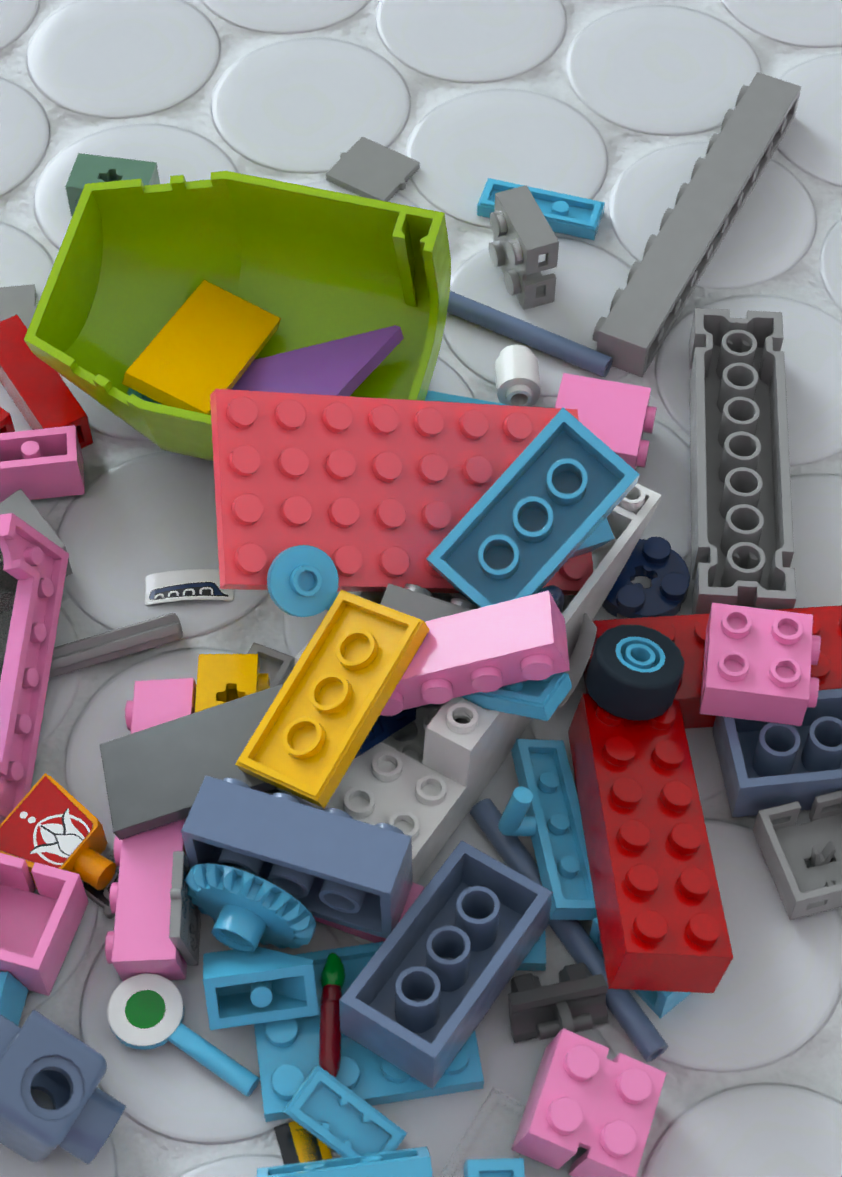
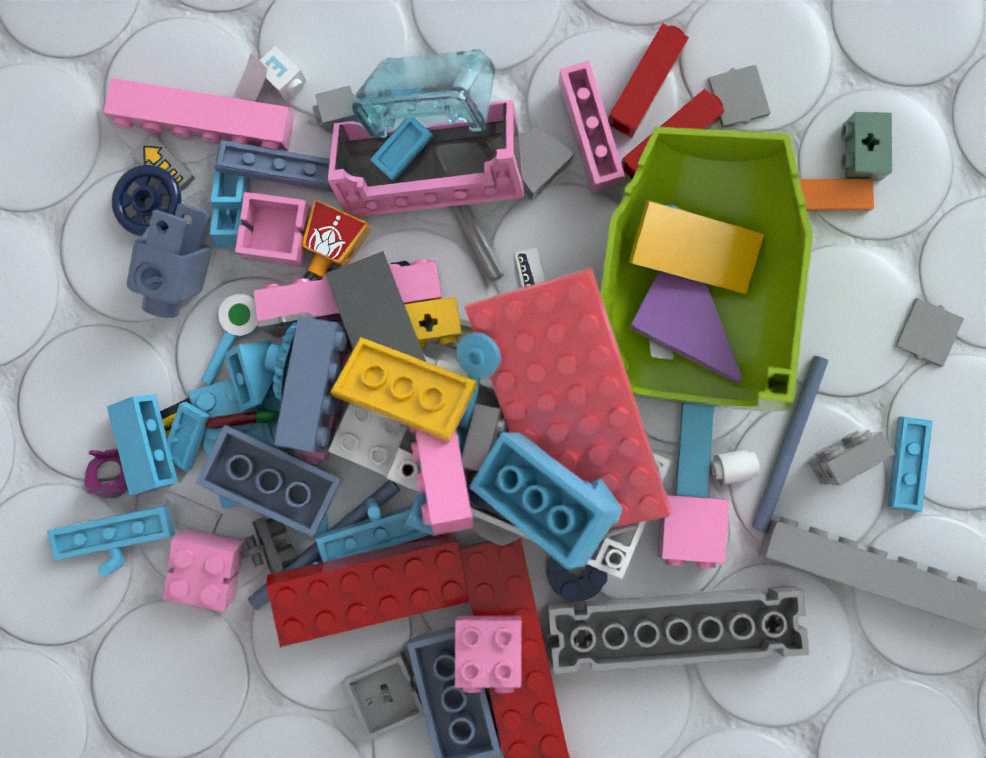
camera: 85 degrees right, 30 degrees up
(634, 672) = (457, 568): black wheel -> none

